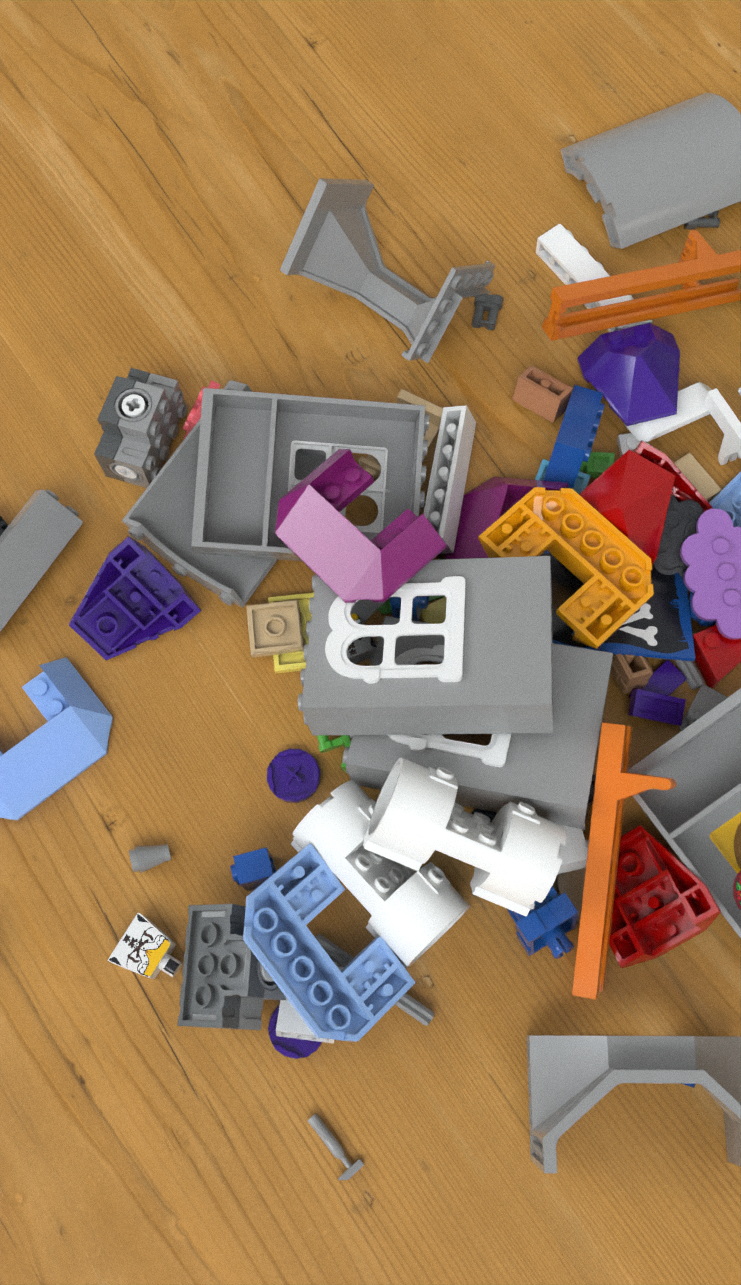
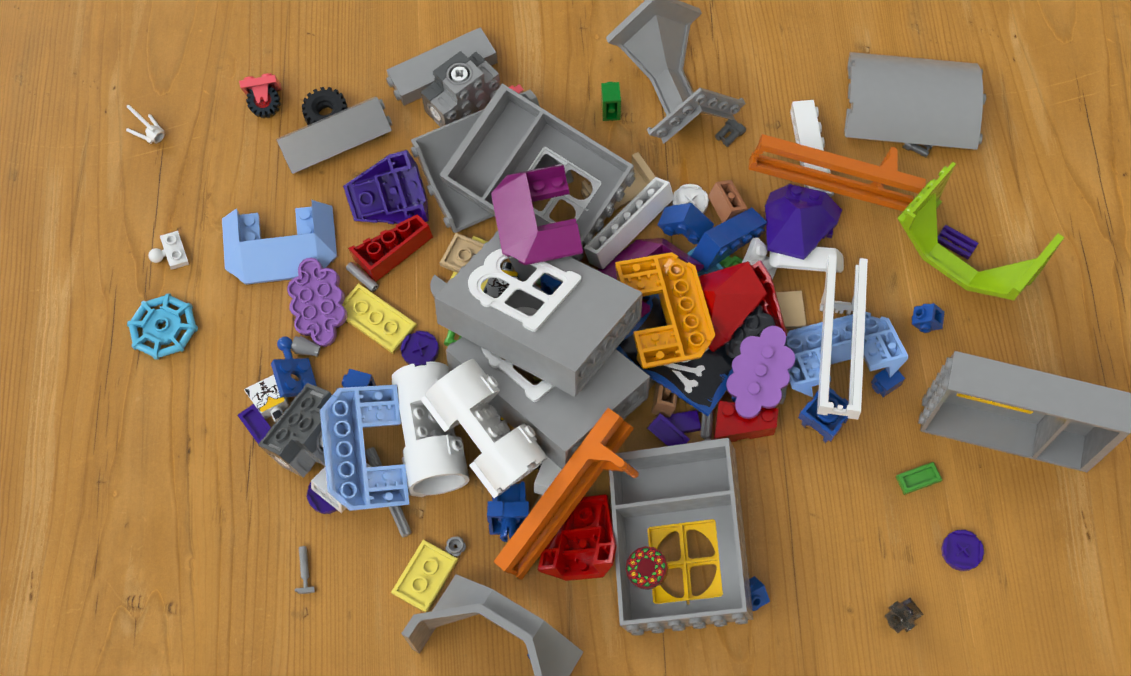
camera: 30 degrees right, 5 degrees down
(74, 432) = (417, 73): none -> light grey brick
(127, 790) = (317, 302): none -> medium lavender plate
(142, 902) = (285, 367): none -> blue plate
(150, 994) = (254, 423): none -> dark purple tile
(162, 725) = (362, 277): none -> light grey piece
(177, 669) = (391, 247): none -> red wedge
(213, 768) = (377, 318): none -> light yellow tile
(266, 685) = (437, 285): none -> light grey tile
(329, 345) = (610, 101): none -> green brick
(486, 1058) = (424, 576): none -> light yellow tile
(495, 416) = (691, 194): none -> white tile
(499, 989) = (455, 541): none -> light grey plate
(511, 441) = (685, 220): none -> blue brick
(615, 438) = (756, 251): none -> white plate

